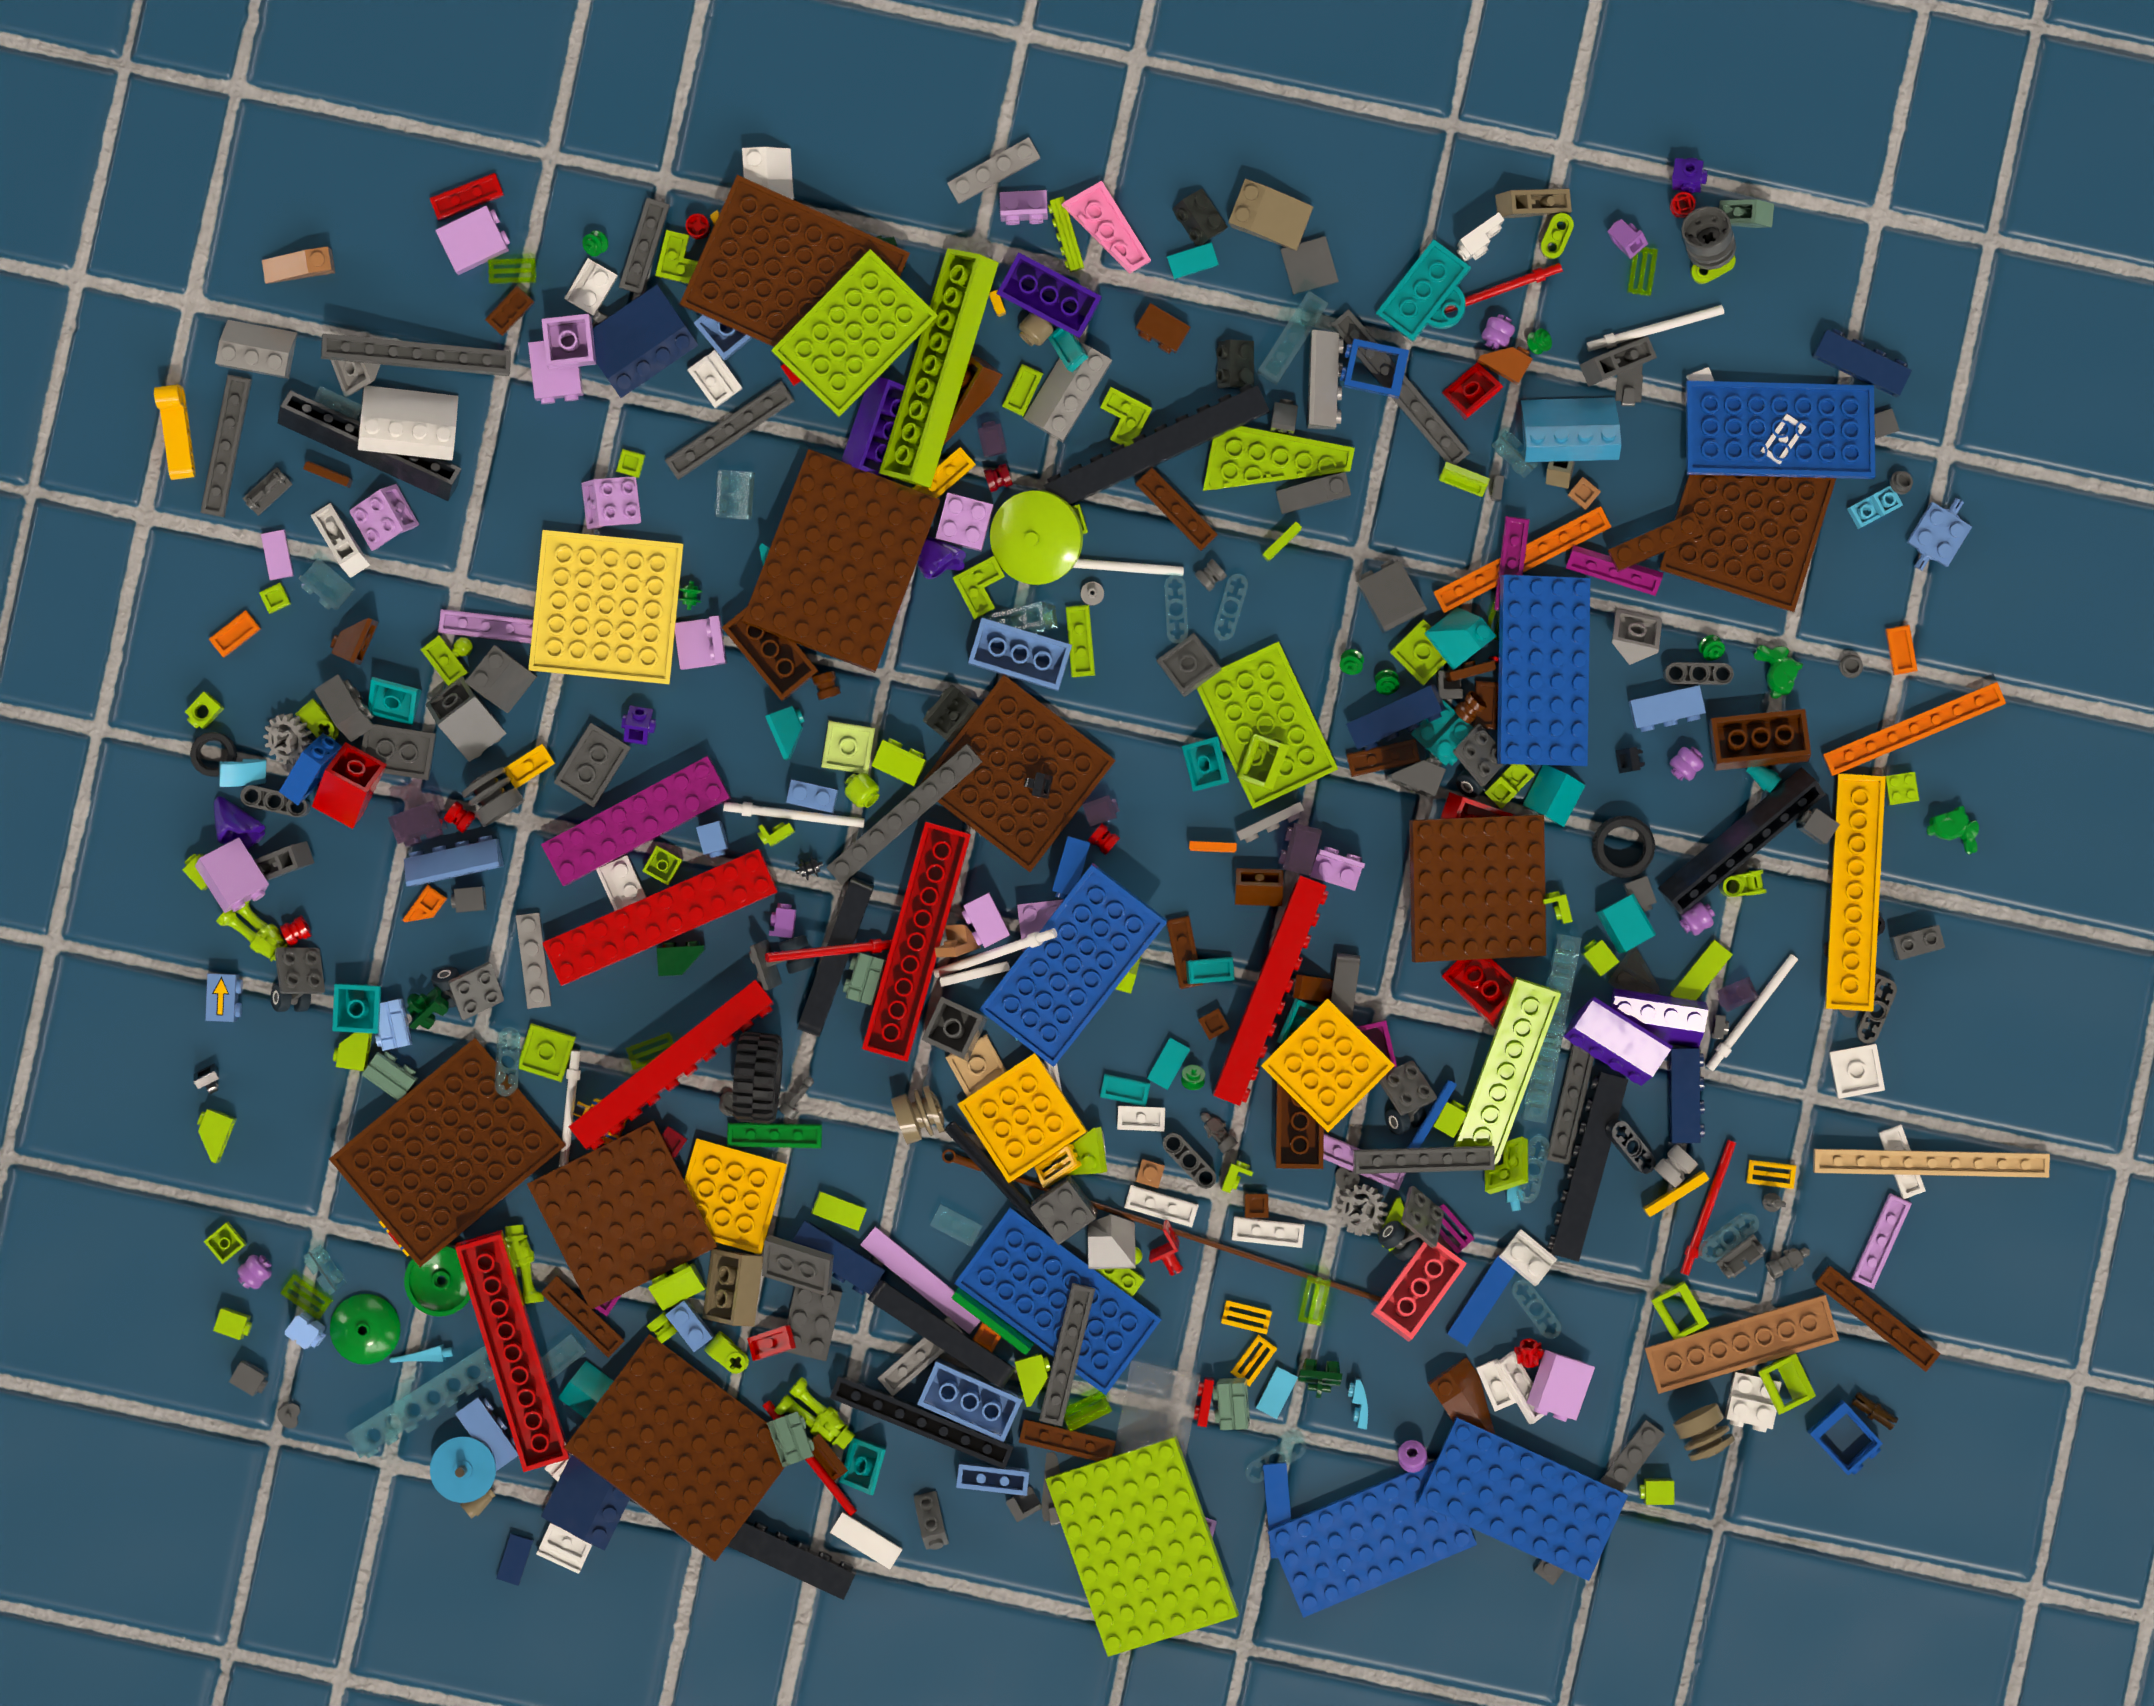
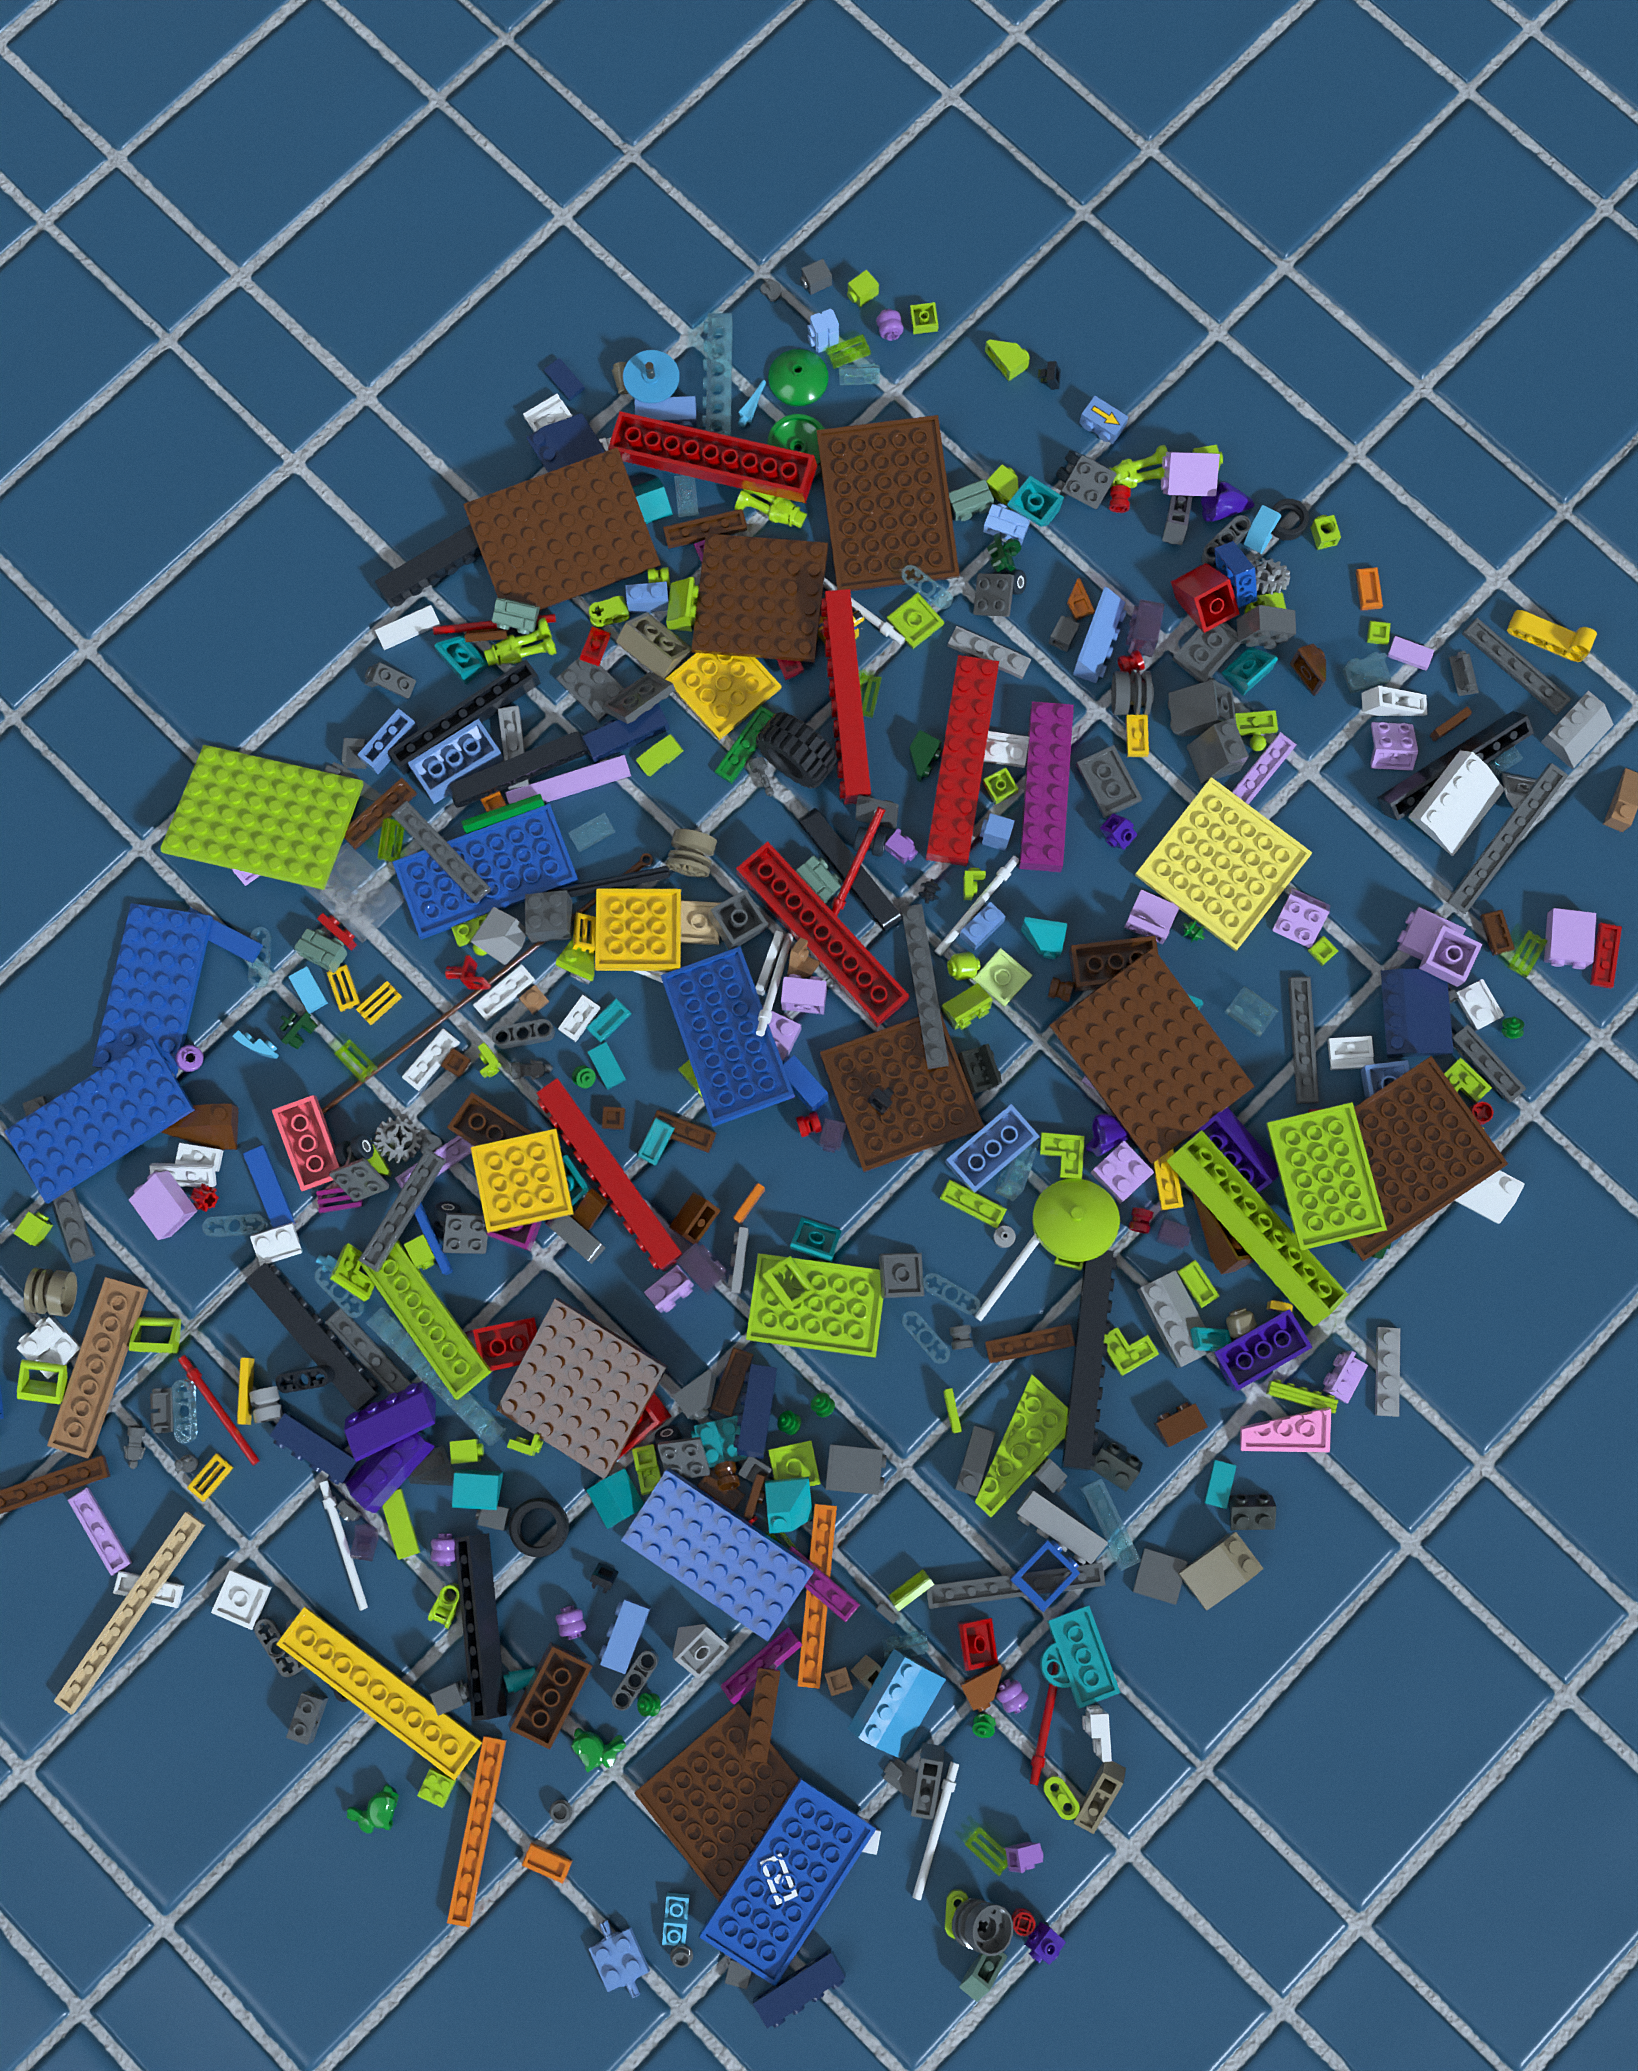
camera: 130 degrees right, 10 degrees down
(1032, 1375) = (444, 817): lime slope -> none

